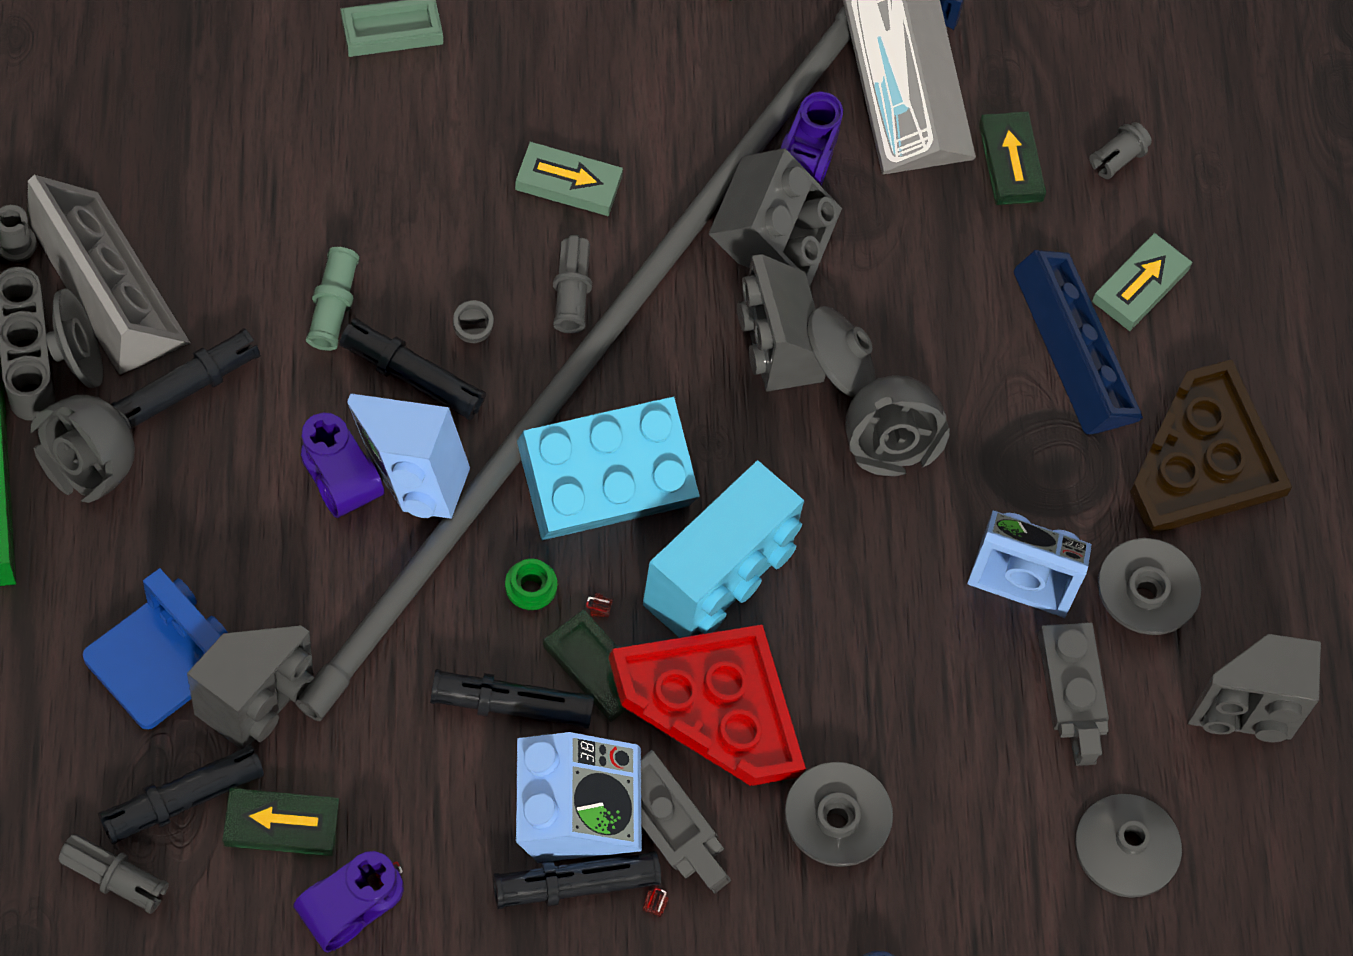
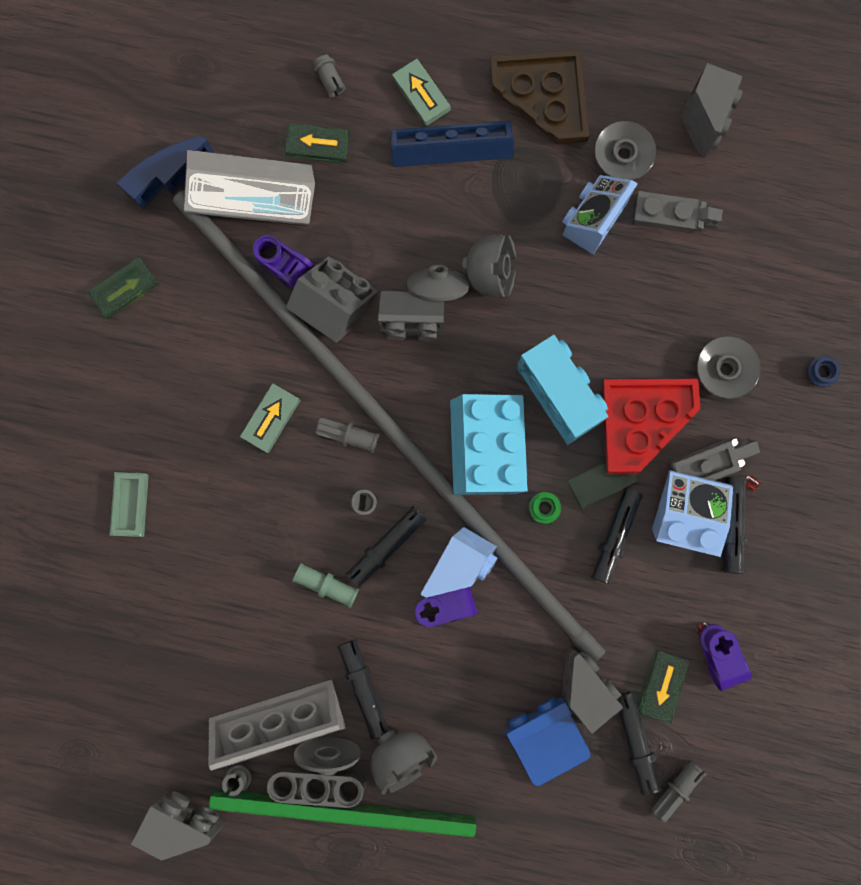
camera: 65 degrees left, 20 degrees up
(600, 605) = (564, 469): clear red piece -> none
(1115, 863) = (760, 221): dark grey dish -> none

